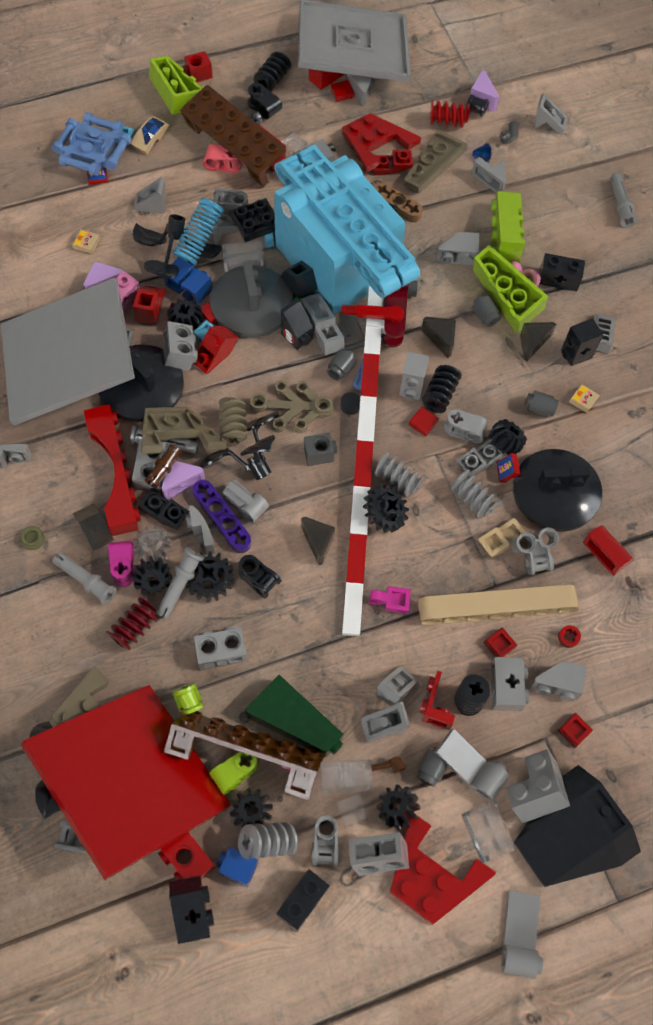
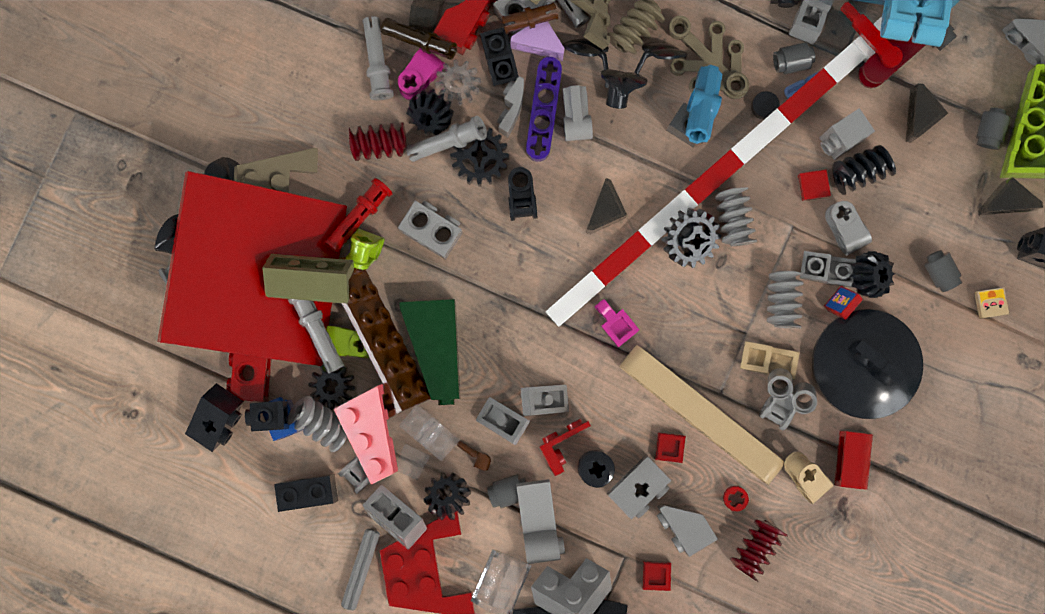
camera: 50 degrees right, 20 degrees up
(109, 535) = (428, 42): none -> dark brown pin
(163, 671) = (365, 206): none -> red pin
(171, 744) = (307, 278): none -> olive panel
(197, 773) = (311, 319): none -> light grey pin
(238, 863) = (277, 416): none -> black brick
(308, 811) = (368, 433): none -> coral wing
(317, 426) = (704, 104): none -> dark azure piece
(390, 920) = (360, 569): none -> light grey axle
(595, 582) = (807, 476): none -> tan piece
(613, 652) = (758, 548): none -> dark red piece

